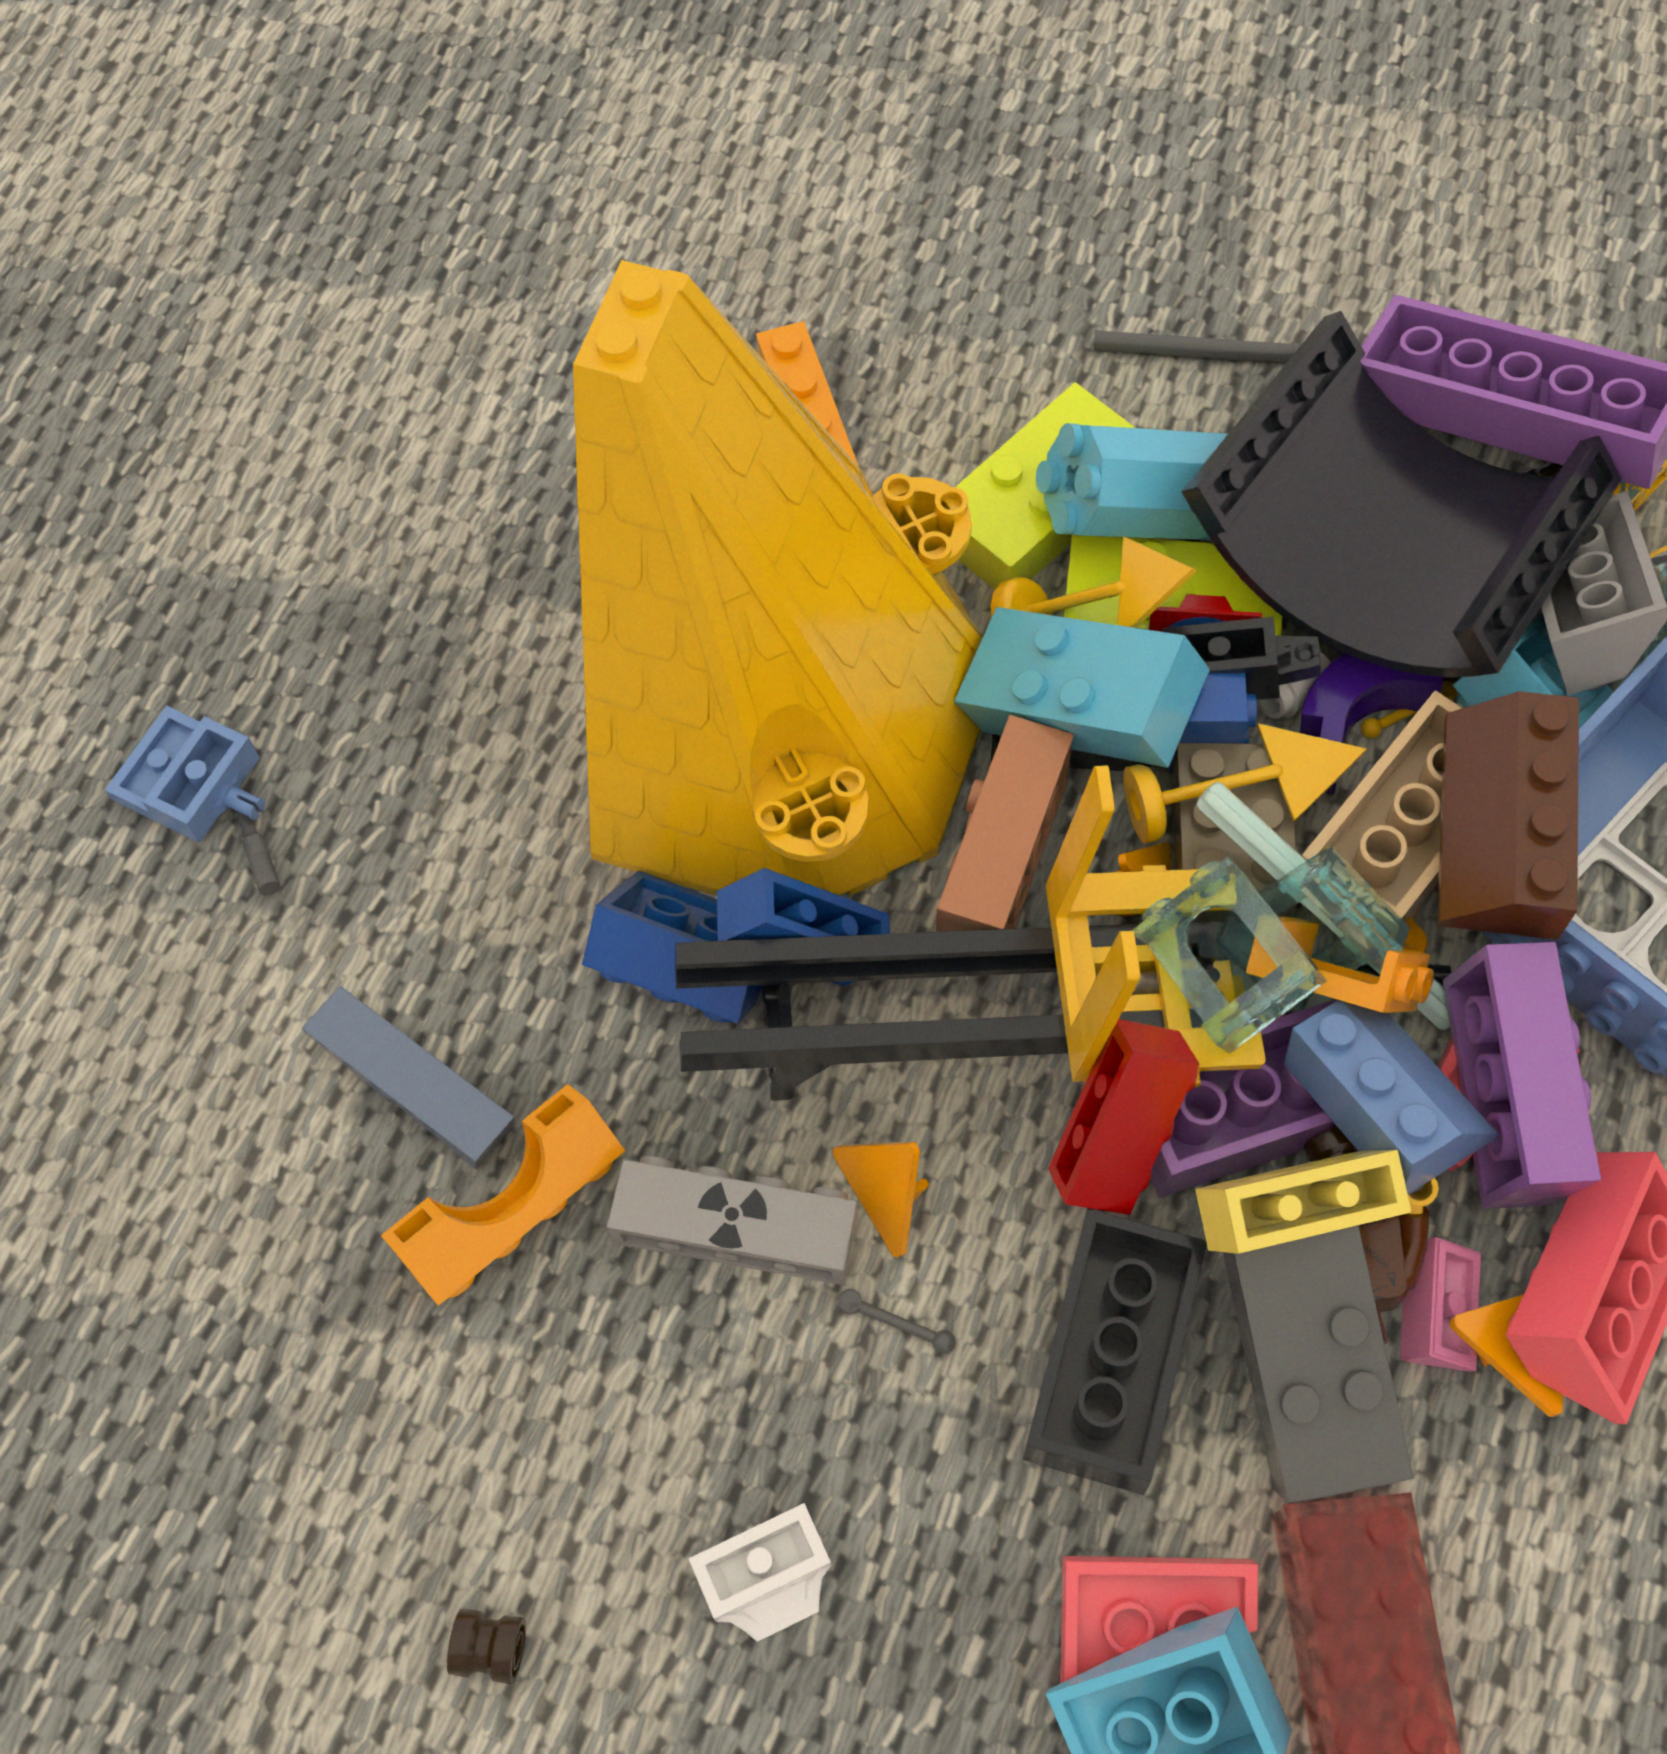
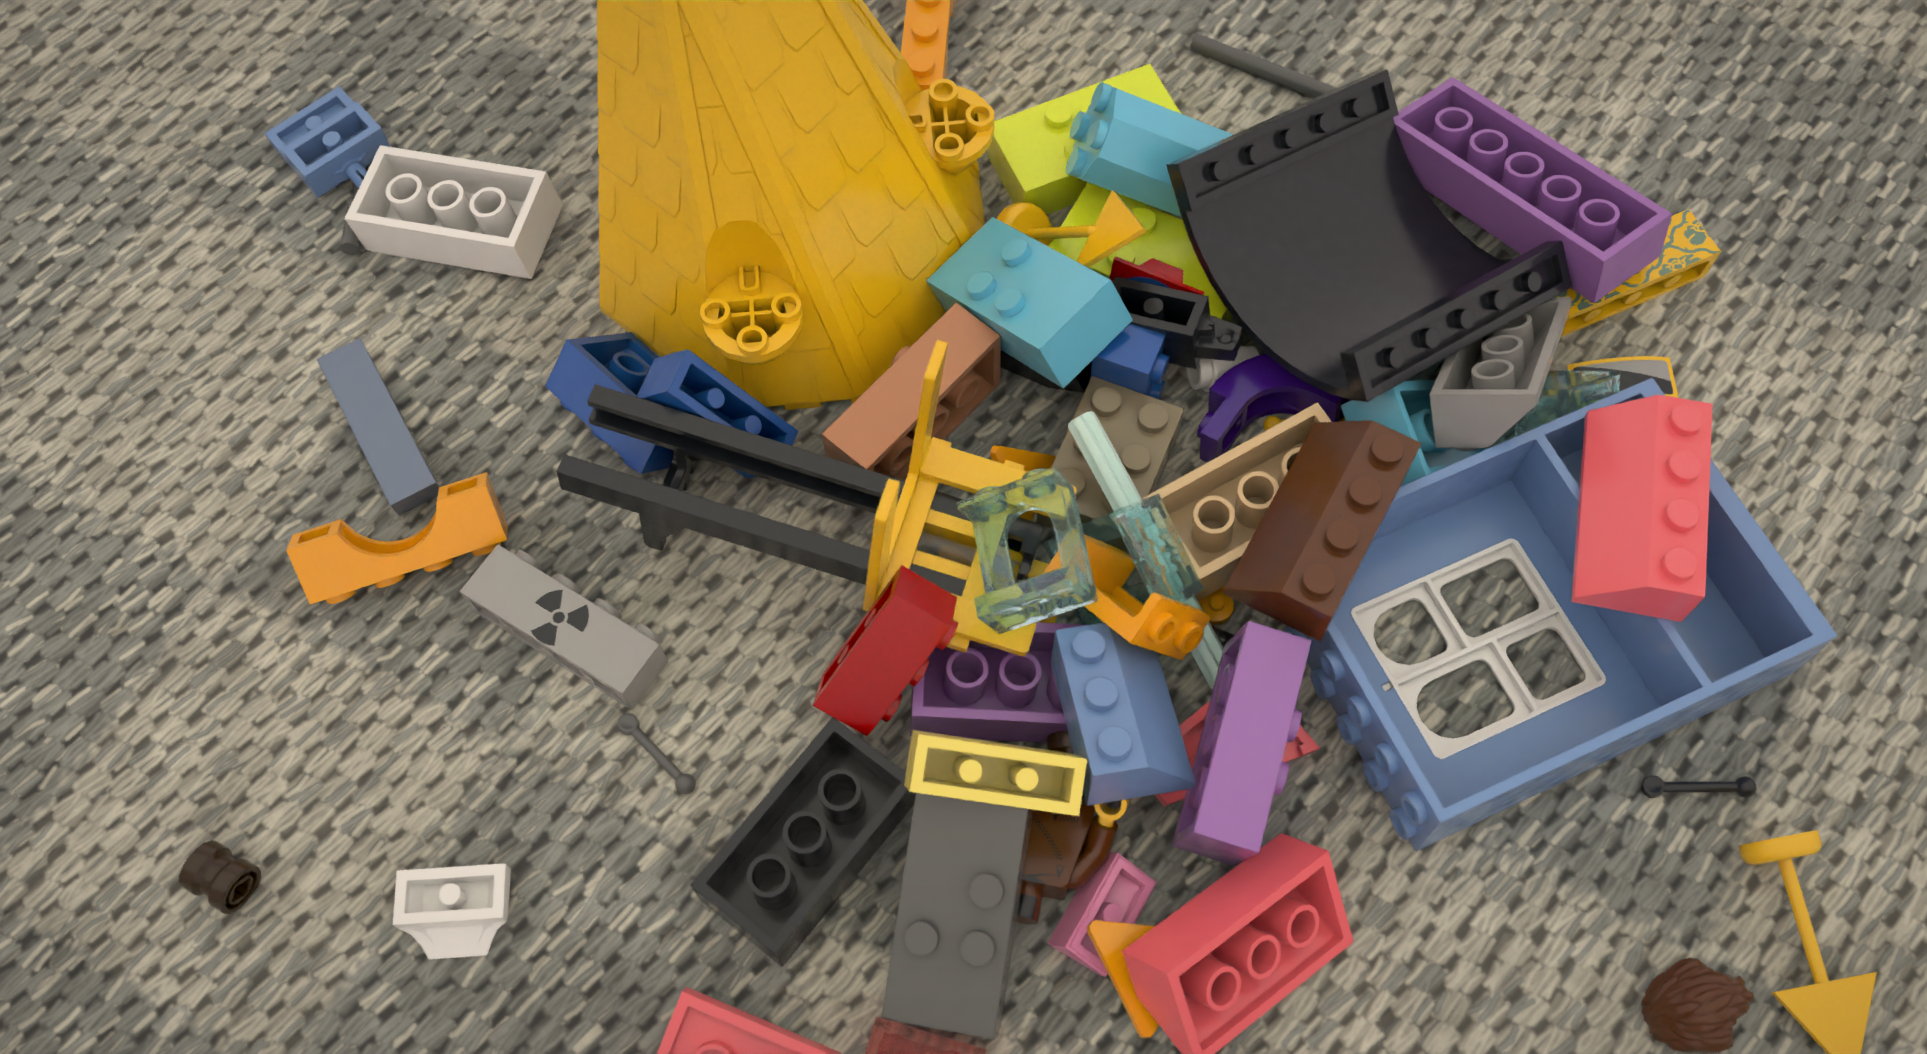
camera: 20 degrees right, 0 degrees up
(379, 804) = (455, 211): none -> white brick
(885, 1185) = (693, 635): light orange piece -> none
(1300, 762) = (1182, 424): yellow piece -> none

